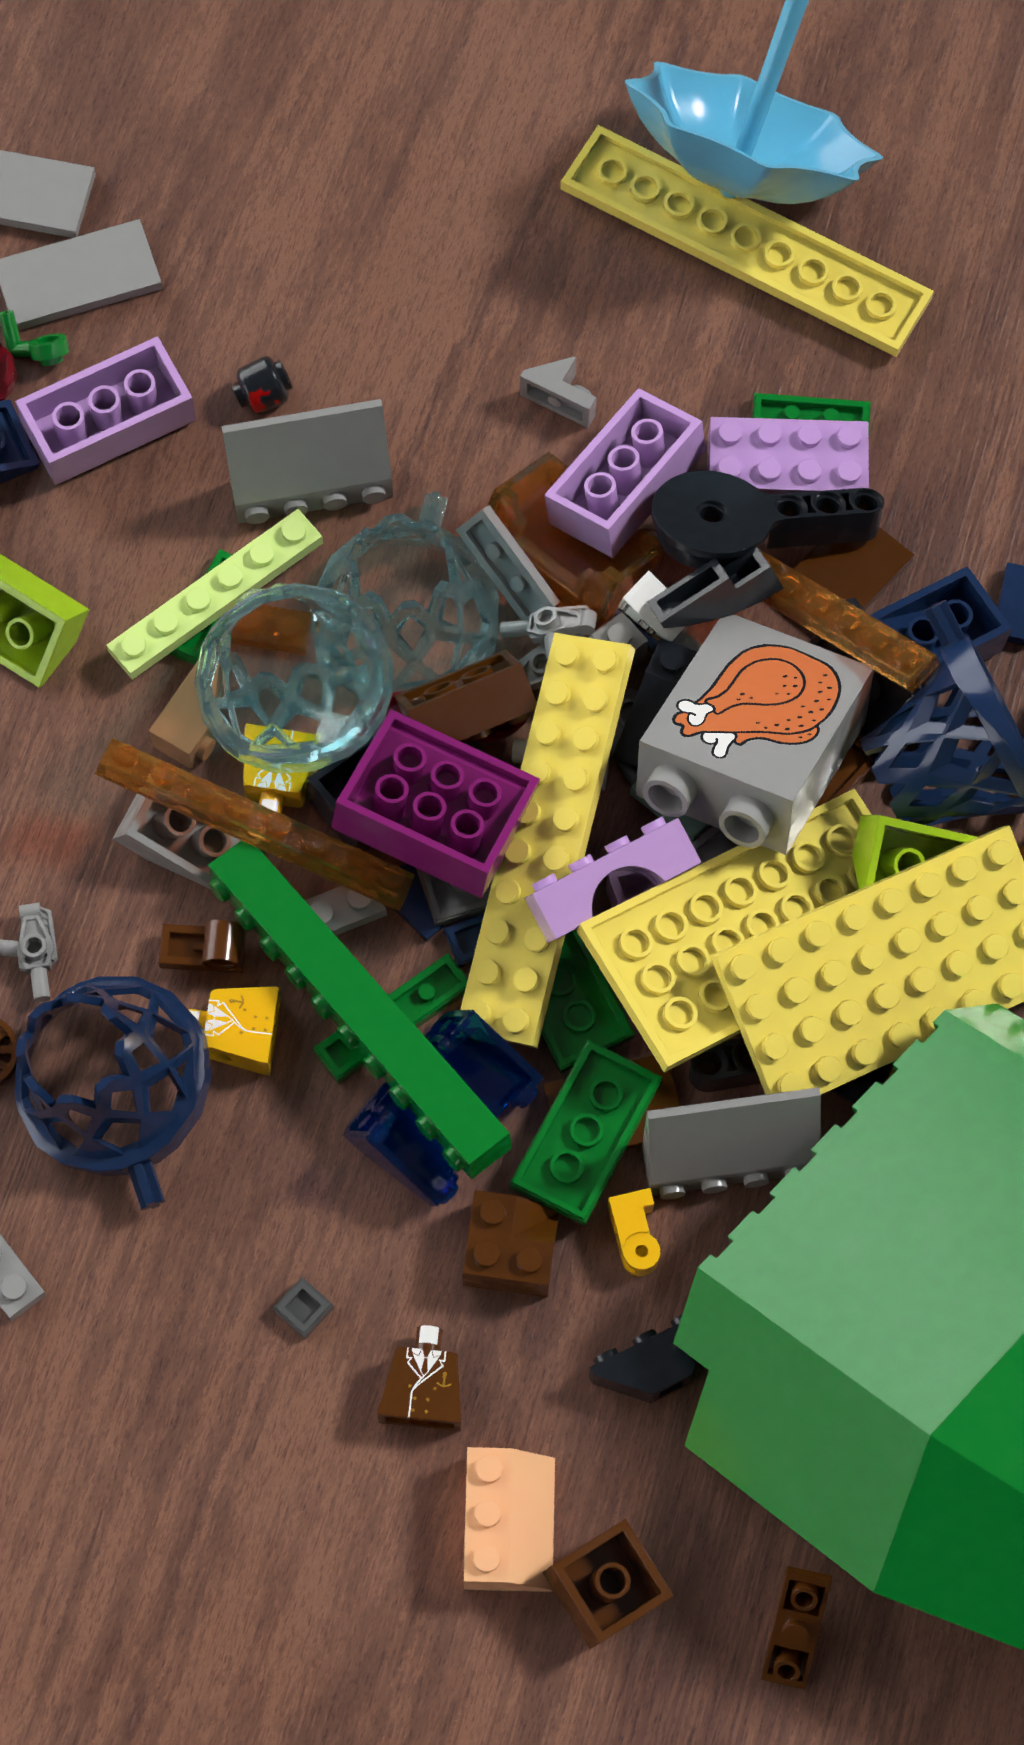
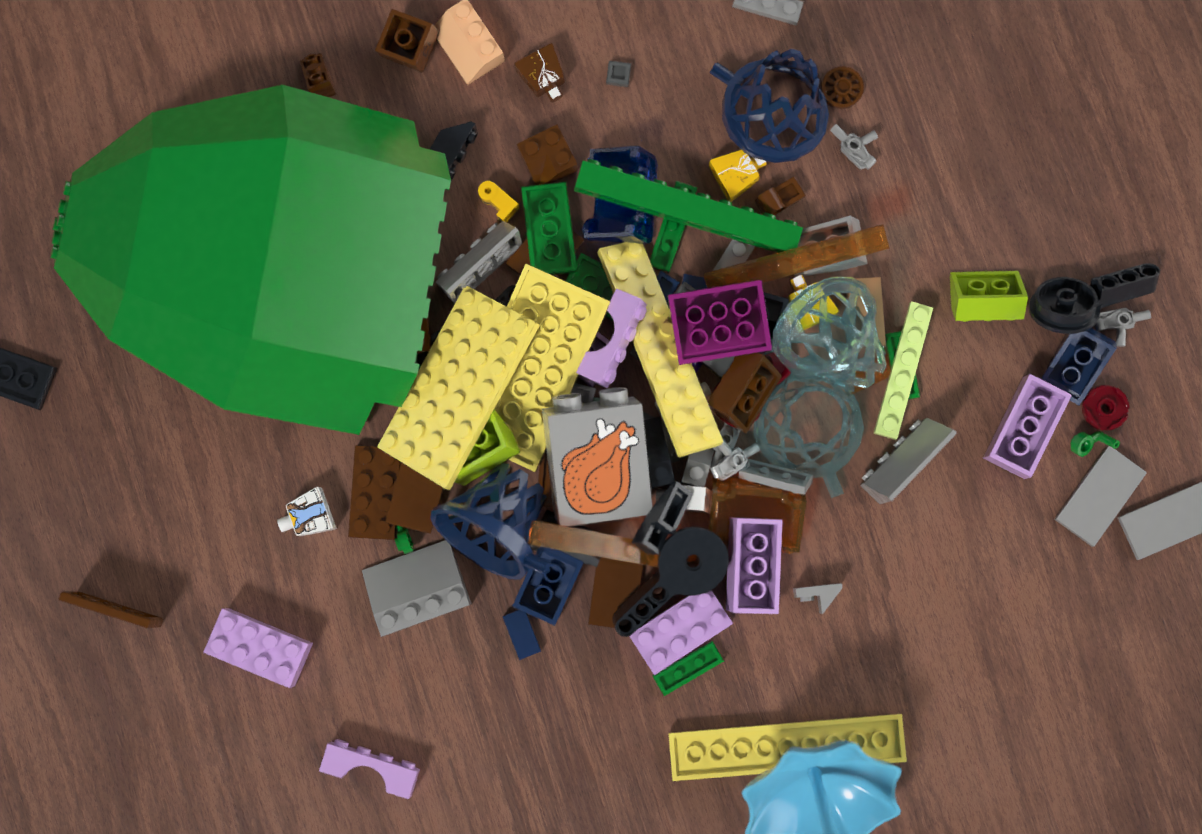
camera: 150 degrees right, 15 degrees up
(262, 385) = (964, 496): black head -> none

